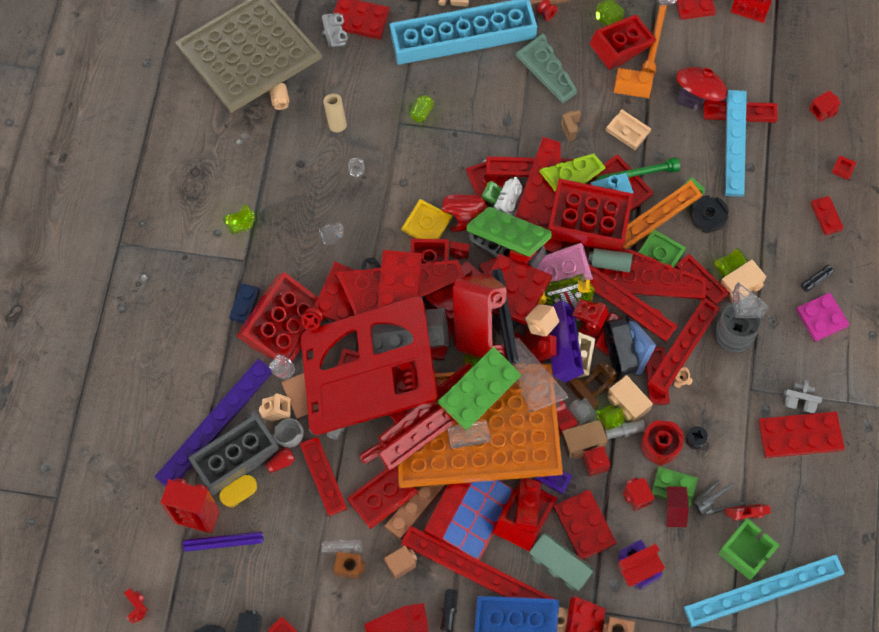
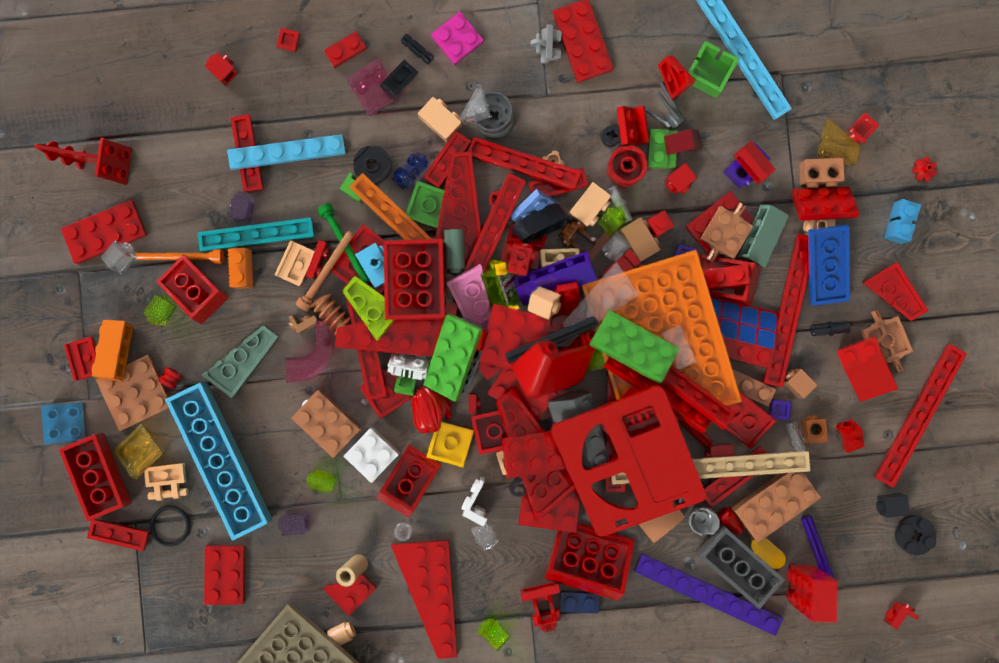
camera: 100 degrees left, 20 degrees up
(238, 263) = (545, 620): none -> red tile
(271, 410) = (684, 545): light nougat brick -> none
(282, 367) = (640, 545): clear piece -> none
(286, 506) = (775, 503): none -> nougat brick
(304, 179) = (429, 580): none -> red wing
(313, 113) = (351, 596): none -> red wing
(313, 322) = (585, 530): red wheel -> none
(332, 602) = (851, 435): none -> red bracket
(333, 29) = (249, 599): light grey hips -> none
(333, 478) = (744, 465): none -> tan plate
(349, 465) = (719, 450): none -> red brick
(363, 221) = (475, 513): none -> white bracket
(378, 539) = (780, 409): none -> dark purple tile
(389, 79) = (293, 523): none -> clear purple brick
(401, 179) = (408, 481): none -> red slope
(434, 154) = (372, 454): none -> white brick
(473, 123) = (326, 423): none -> nougat piece
(530, 117) = (308, 366): none -> clear pink arch
(573, 522) = (726, 232): none -> nougat plate
(577, 145) = (330, 313): none -> nougat piece
(591, 130) = (306, 300): none -> nougat piece
(627, 147) = (320, 253): none -> red plate
(662, 104) = (256, 234): none -> teal plate
(693, 238) = (414, 161): none -> clear blue hinge
(702, 83) = (227, 197): red dish -> none
(703, 458) = (633, 125): none -> red bracket
(730, 262) = (423, 134): clear neon green bracket -> none
(785, 229) = (366, 87): none -> clear pink bracket
(789, 252) = (399, 79): none -> black plate

